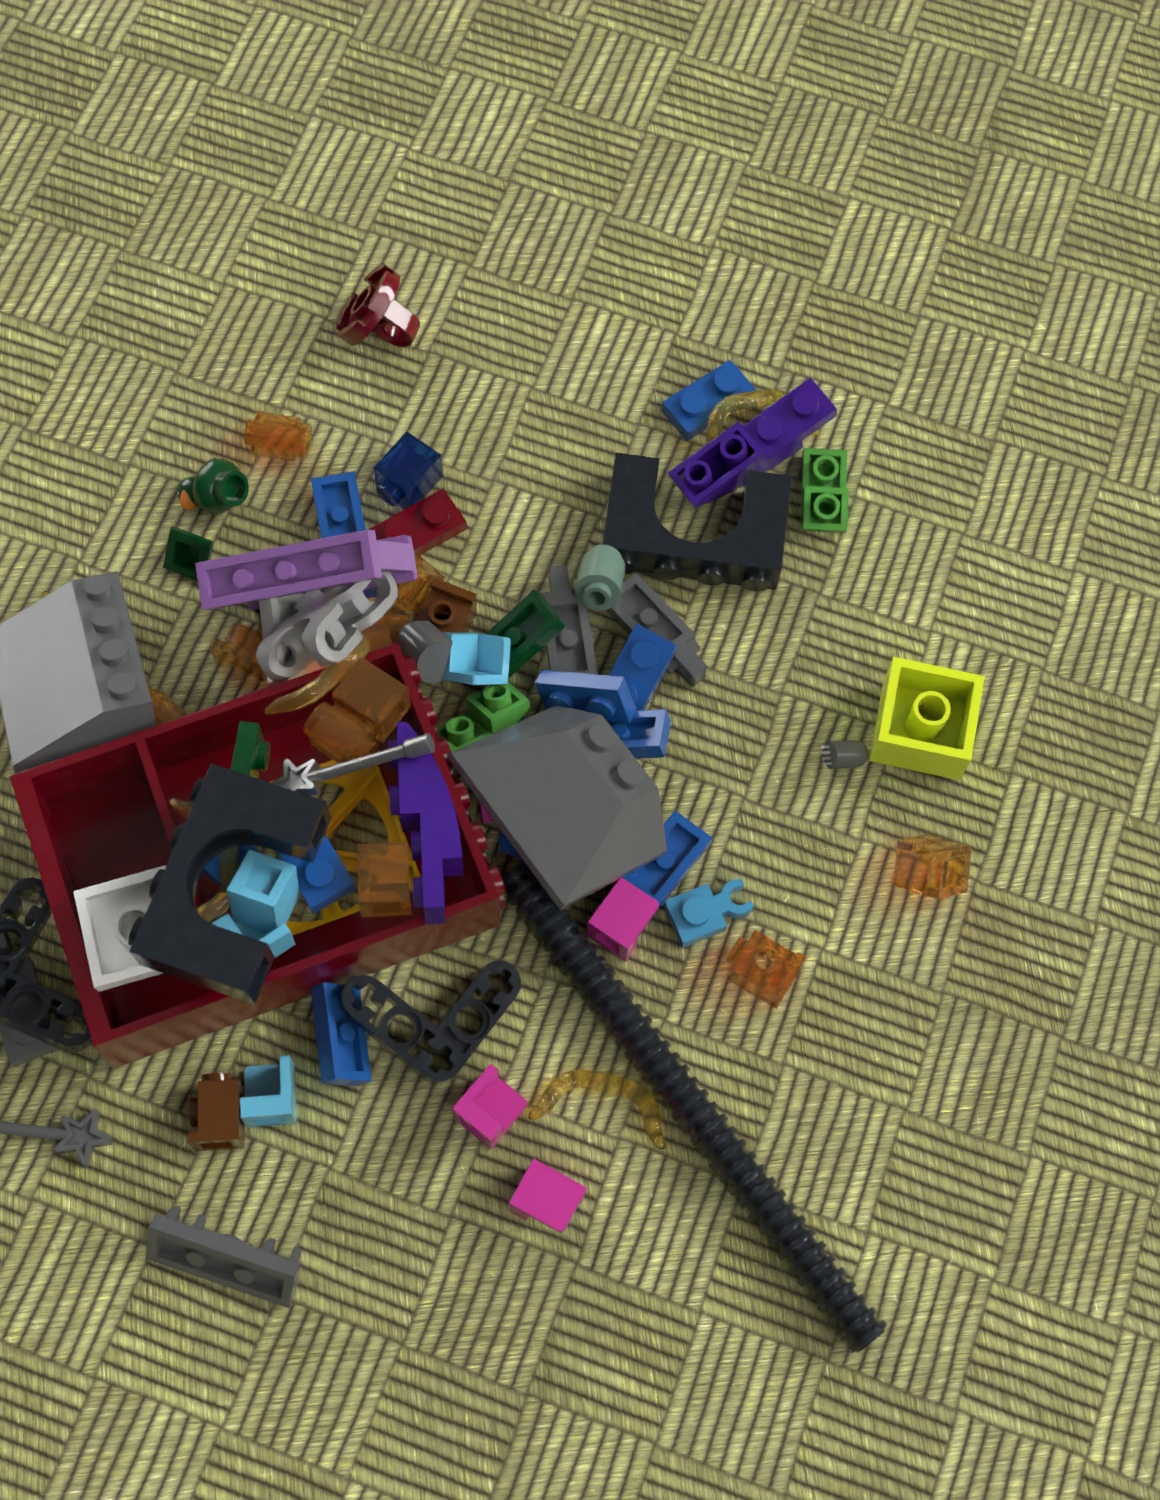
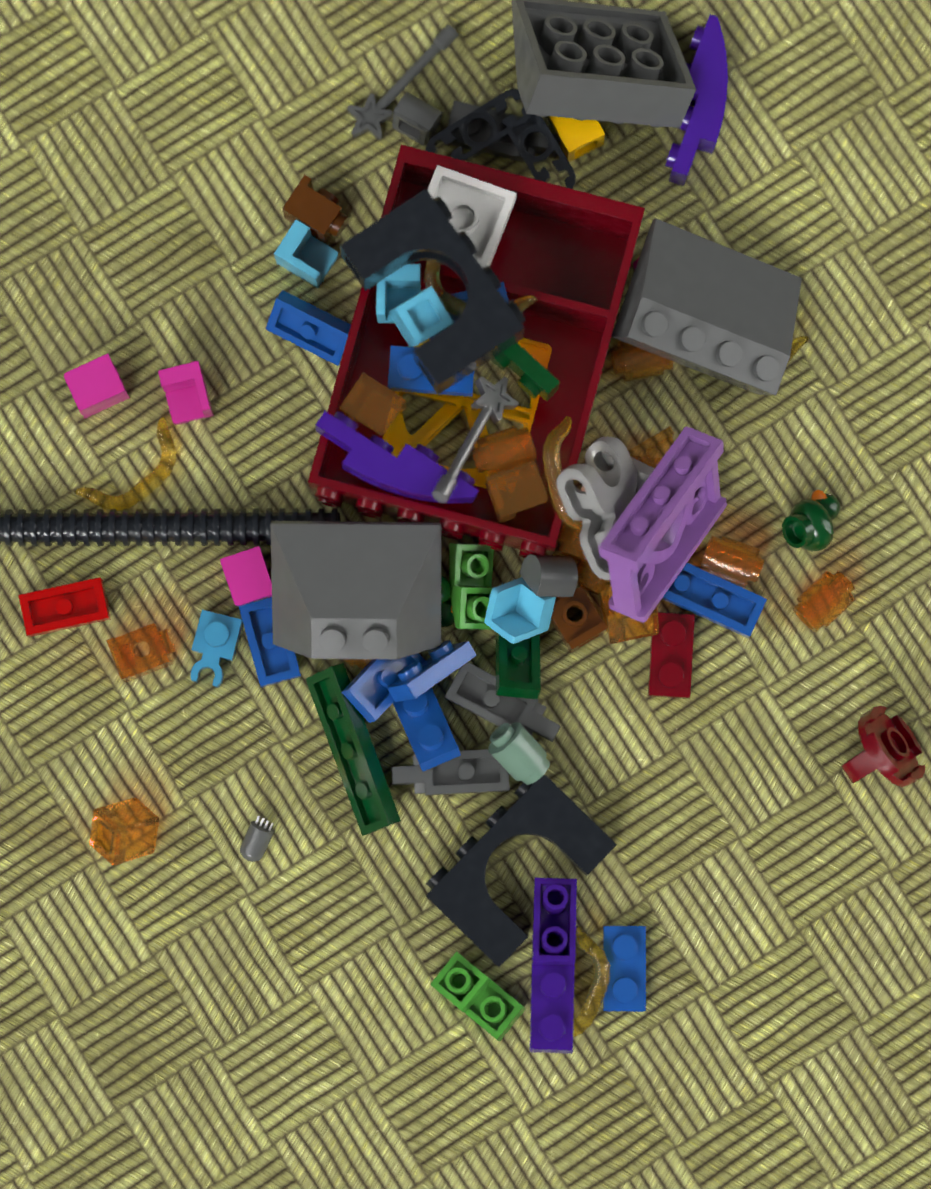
camera: 130 degrees right, 15 degrees up
(53, 1084) = (416, 119): none -> dark grey brick
(185, 550) = (768, 467): dark green slope -> none
(223, 1258) = (216, 154): dark grey plate -> none
(294, 520) = (732, 560): none -> clear orange brick
(407, 472) = (721, 676): clear blue brick -> none
(445, 1033) = (260, 397): black beam -> none
(706, 720) = (352, 751): none -> dark green plate
(779, 1070) = (64, 607): none -> red plate
(927, 718) = (230, 913): neon yellow brick -> none

